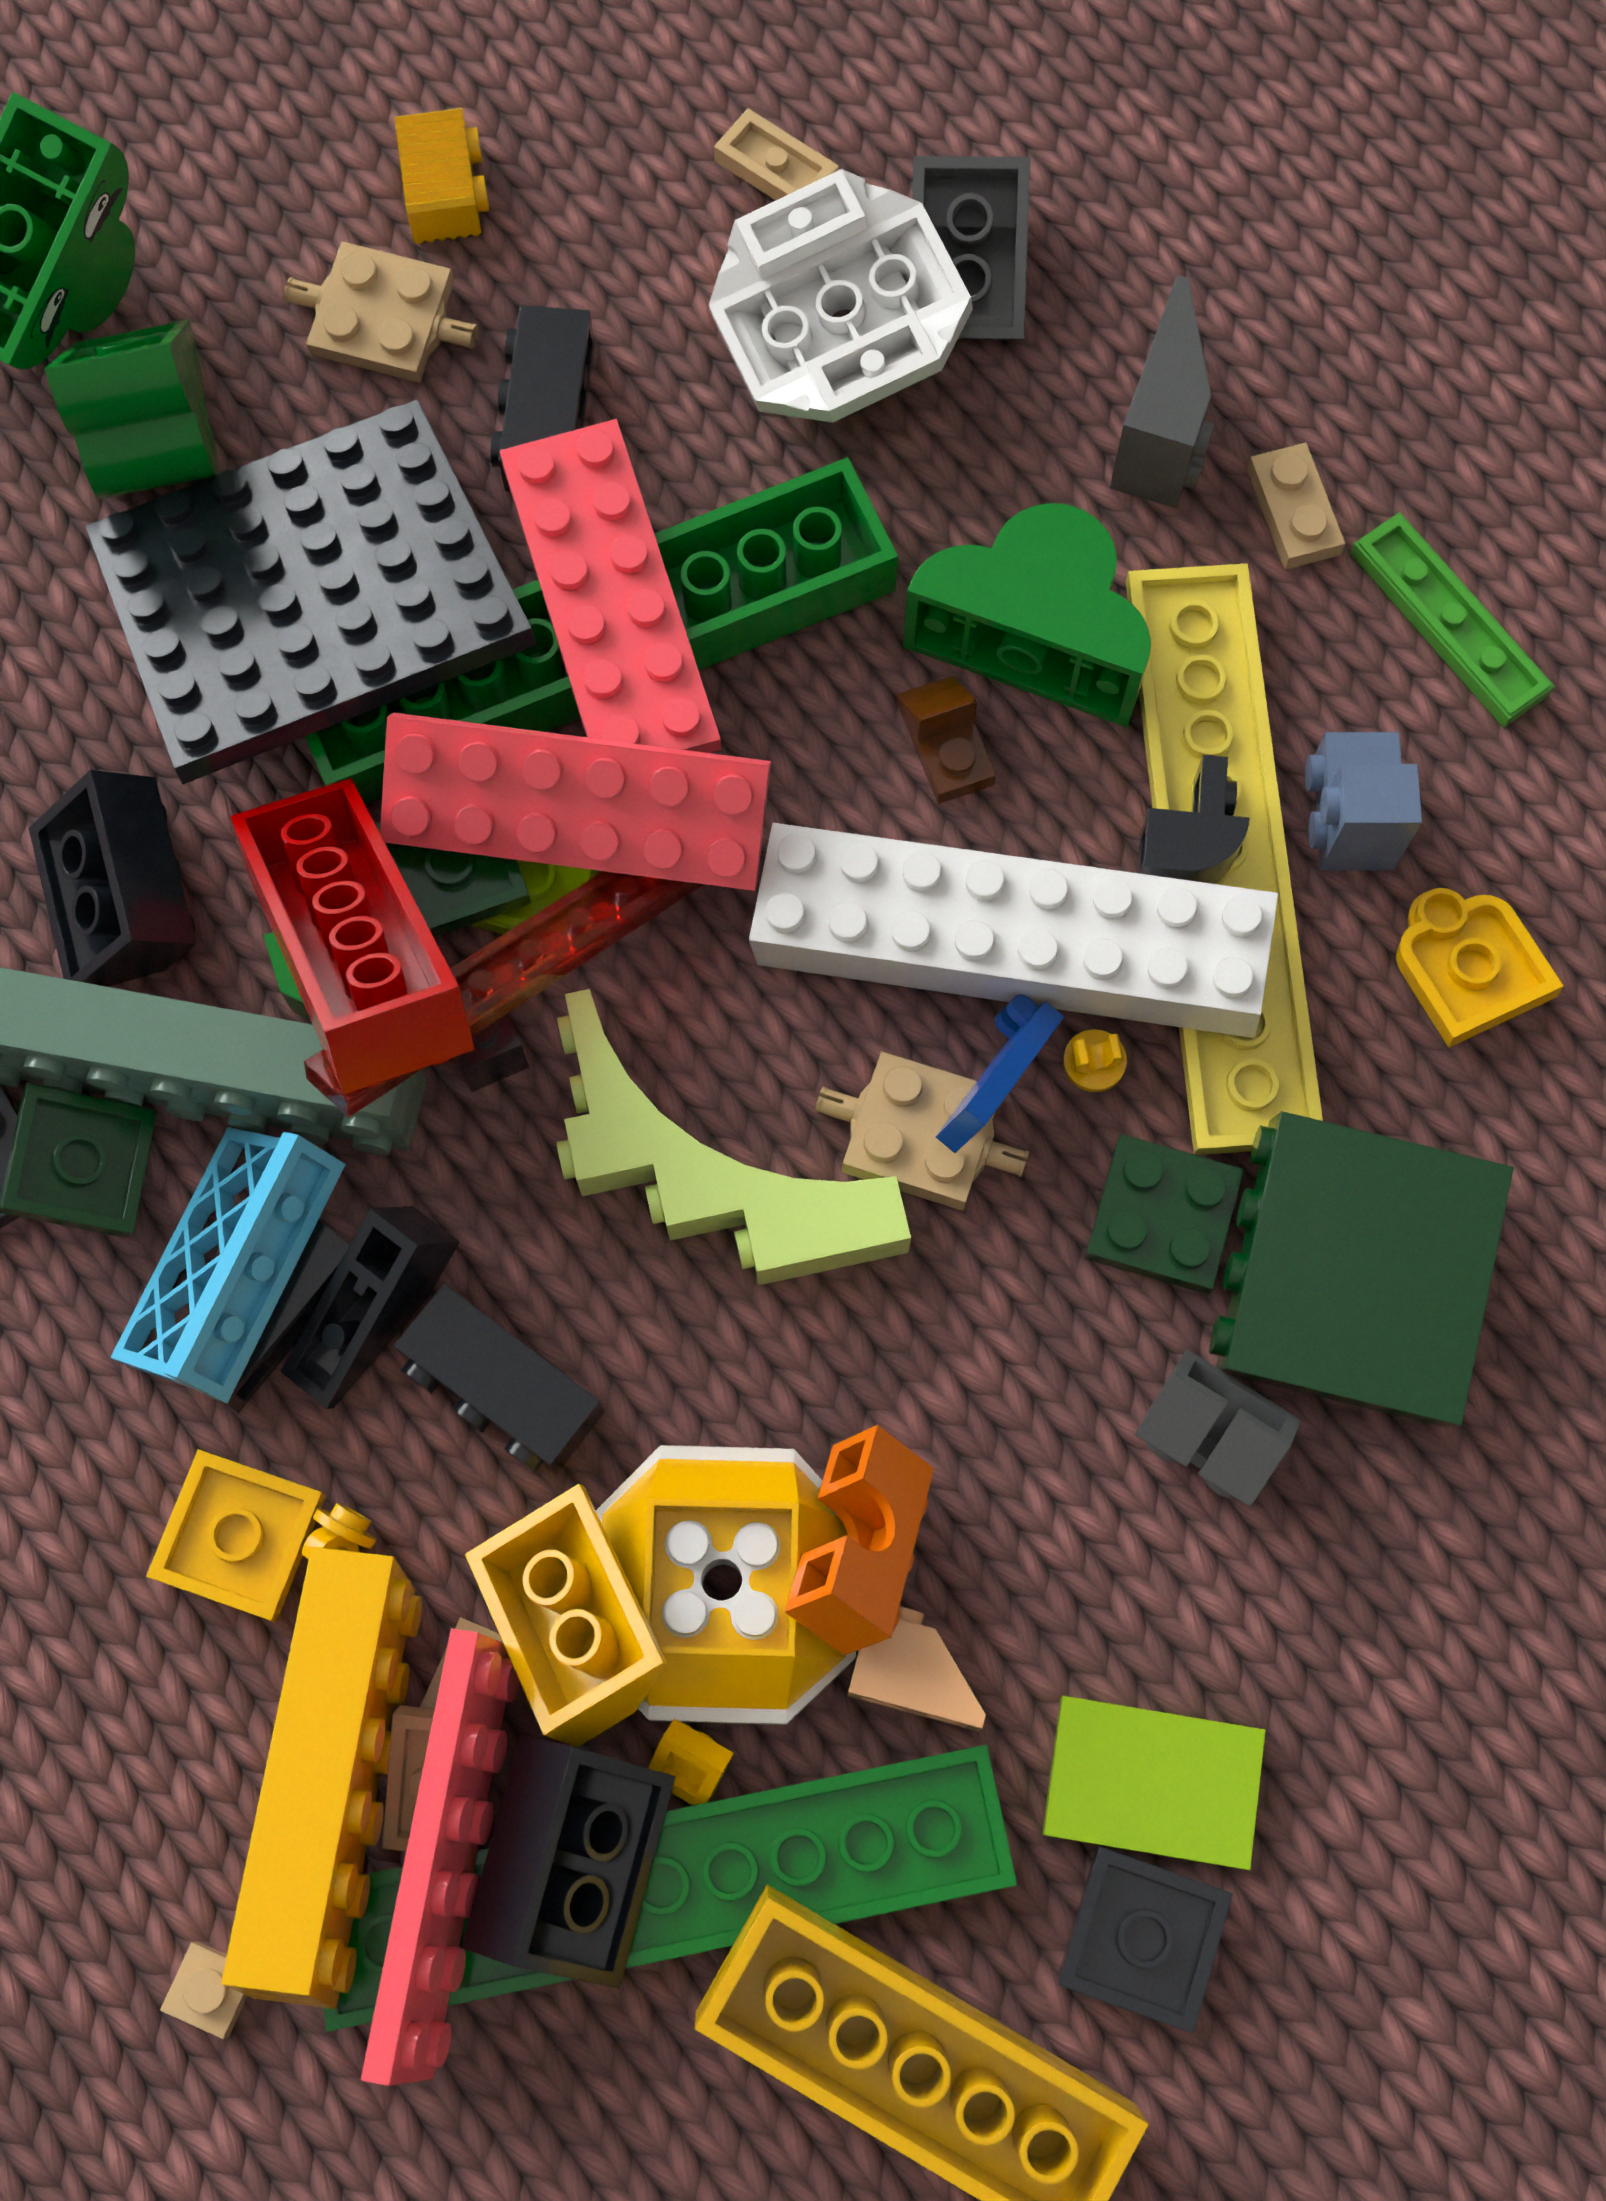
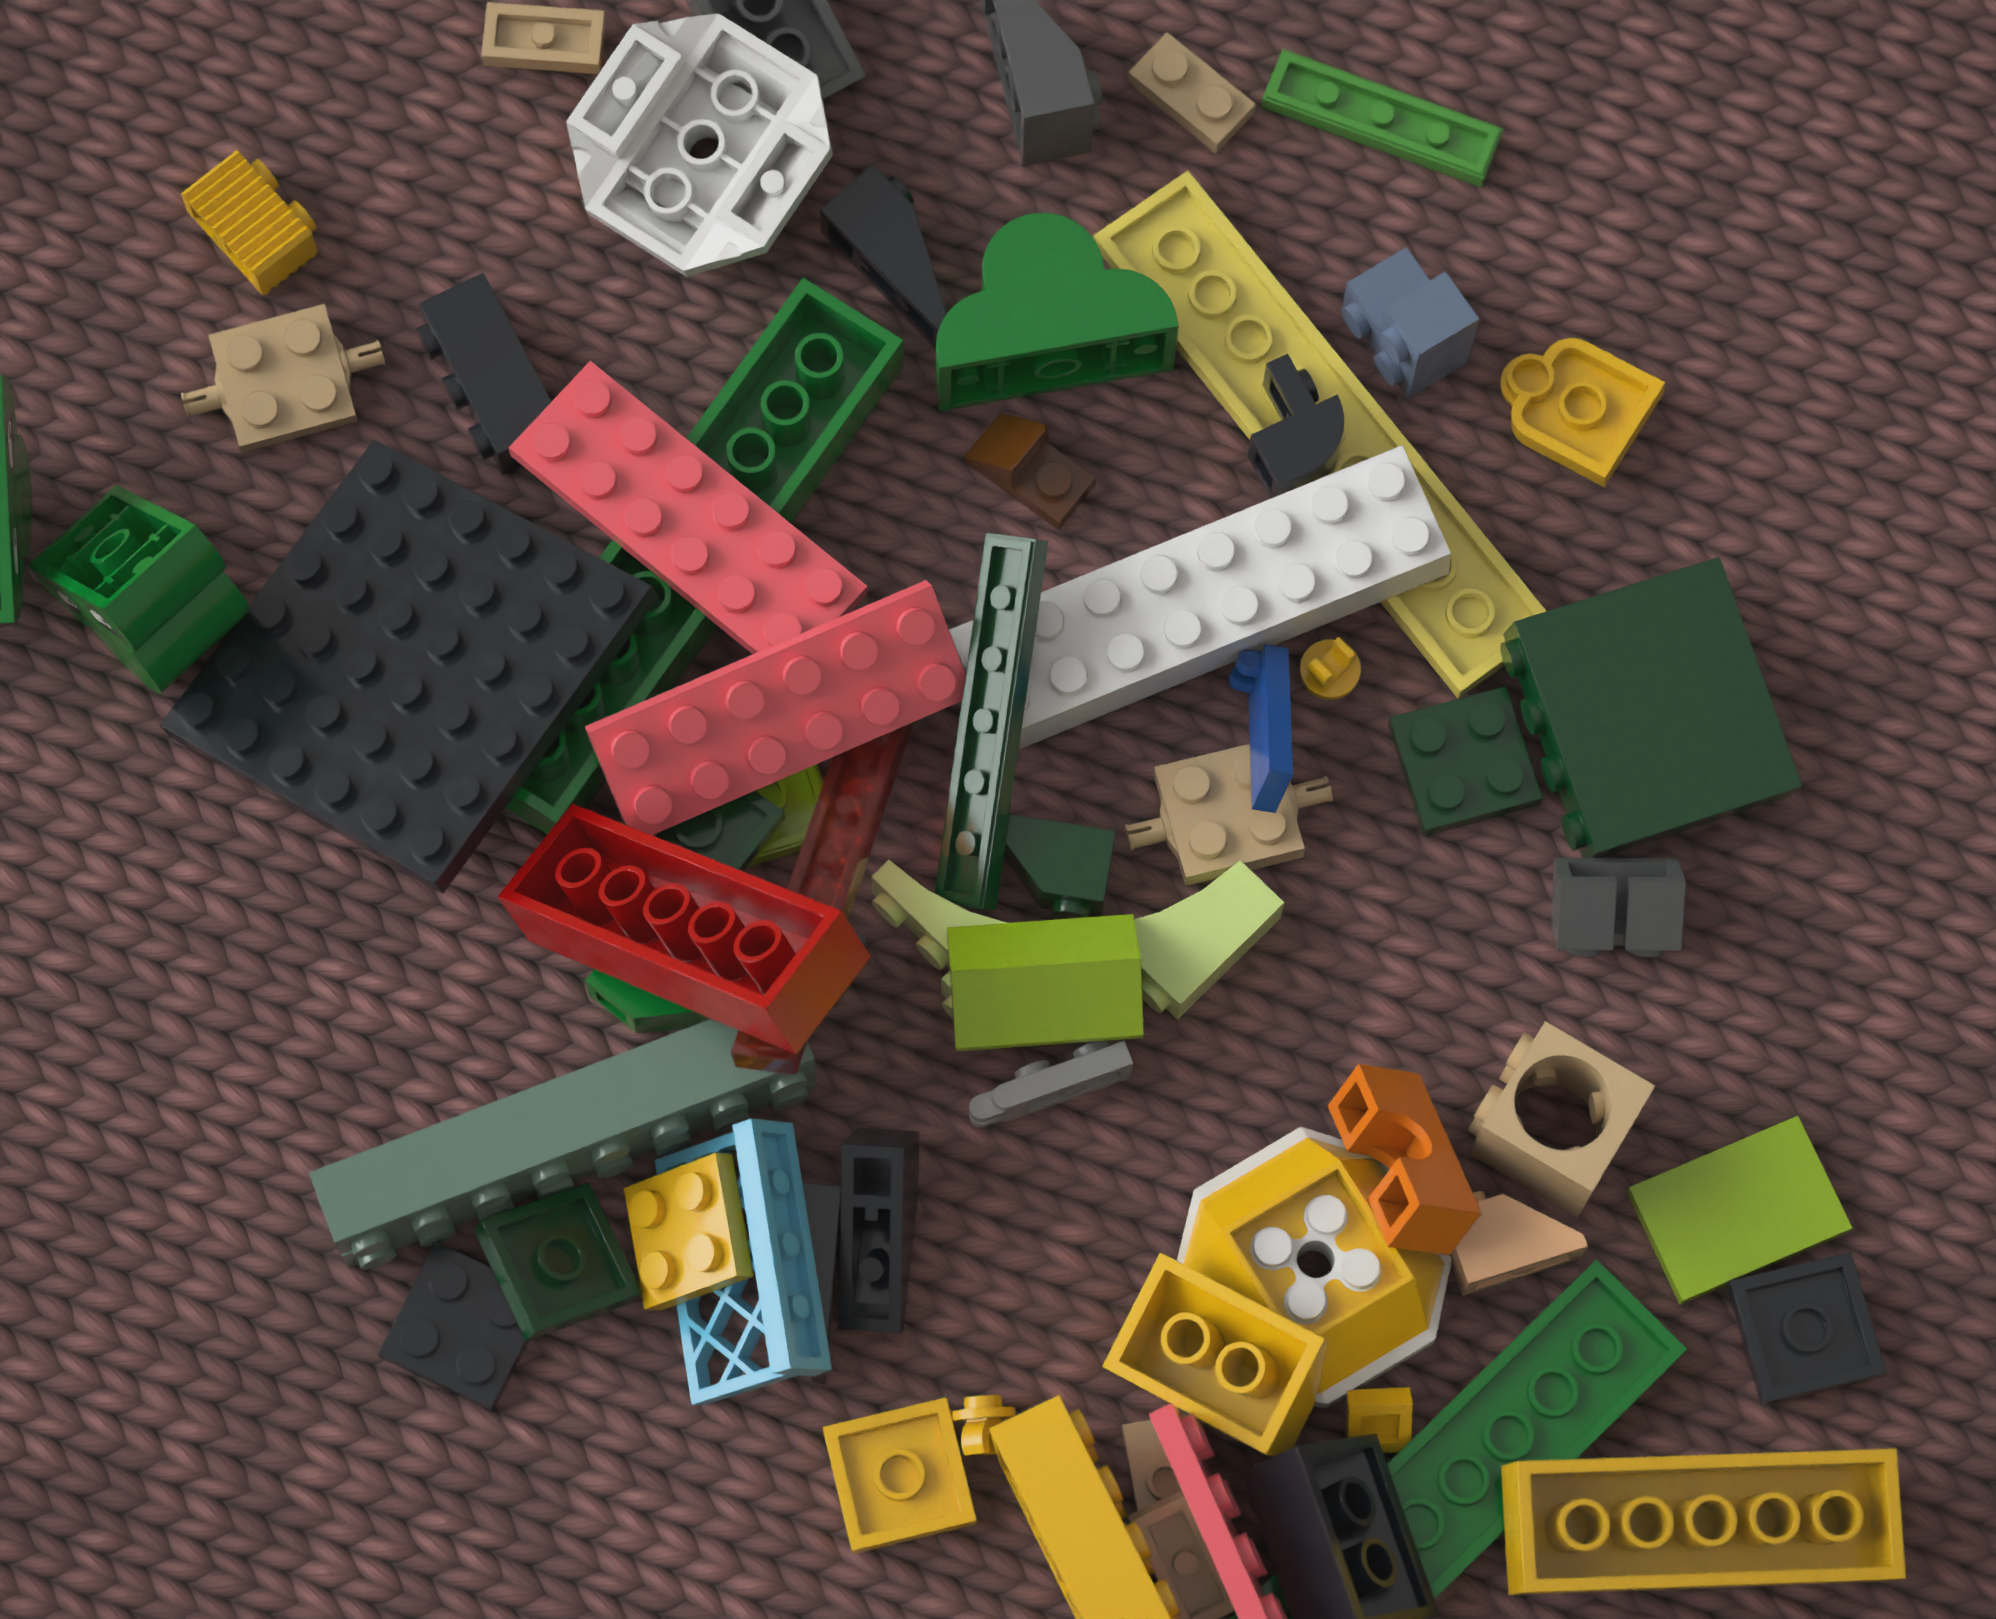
camera: 35 degrees left, 0 degrees up
(112, 880) = (411, 1017): black slope -> none
(198, 1203) = (688, 1231): none -> yellow plate
(497, 1381) = (1026, 1223): black brick -> none
(595, 1269) = (1043, 1085): none -> light grey hinge
(646, 1176) = (1045, 982): none -> lime slope
(742, 1085) = (1061, 864): none -> dark green slope
(752, 918) = (991, 720): none -> dark green tile
(946, 471) = (882, 239): none -> black slope
(1094, 1607) = (1607, 1088): none -> tan brick

